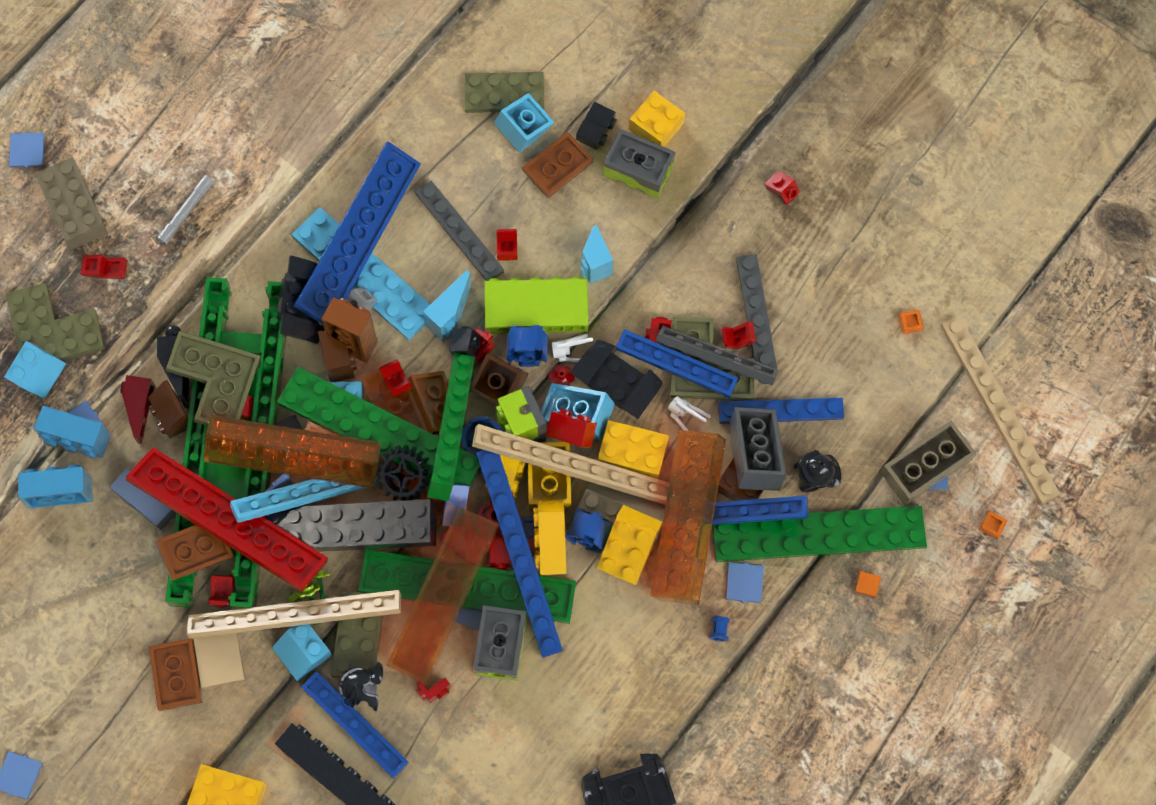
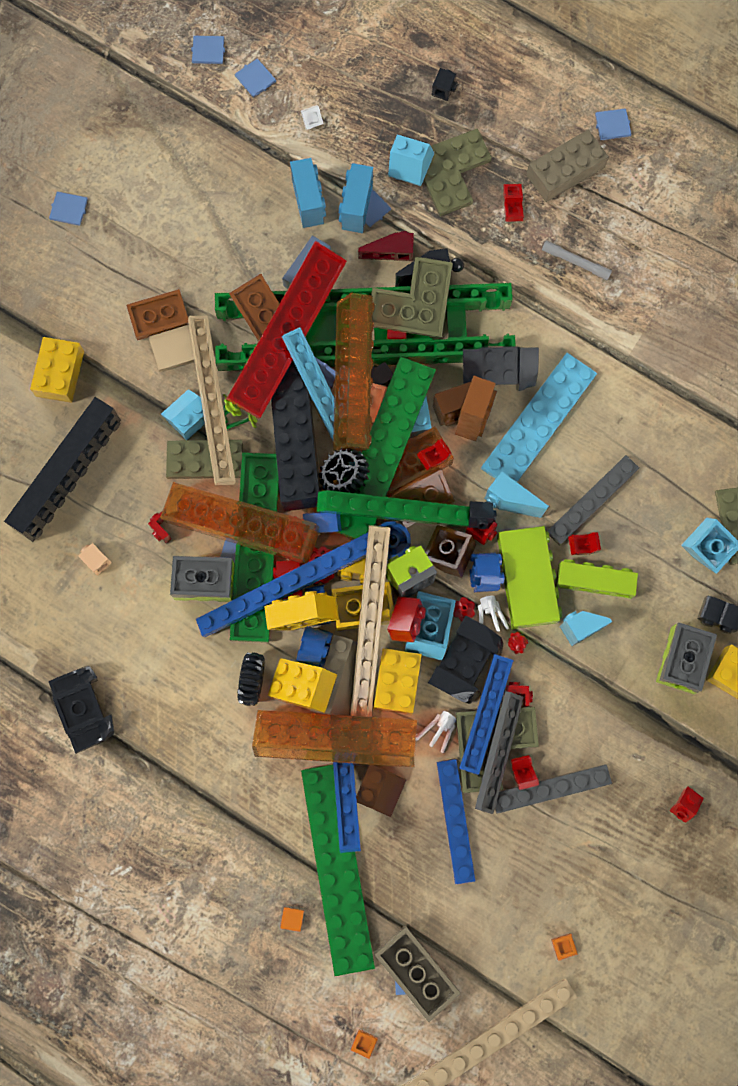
camera: 85 degrees right, 5 degrees up
(168, 409) = (384, 273): reddish brown slope -> none
(221, 589) = (233, 339): red bracket -> none
(355, 725) = (125, 466): blue plate -> none
(358, 231) = (576, 407): blue plate -> none
(361, 297) = (507, 417): light grey brick -> none
(361, 685) = (154, 464): black helmet -> none
(460, 766) = (94, 558): none -> light nougat brick
(546, 238) = (596, 580): none -> lime brick
(557, 164) = (674, 582): dark orange plate -> none
(604, 326) = (517, 642): none -> red plant
(616, 600) = (251, 679): none -> black gear
(719, 628) = (235, 778): blue bush -> none
(744, 582) = (283, 799): medium blue piece -> none
(757, 449) = (407, 798): dark grey brick -> none
(816, 475) = (388, 856): black helmet -> none

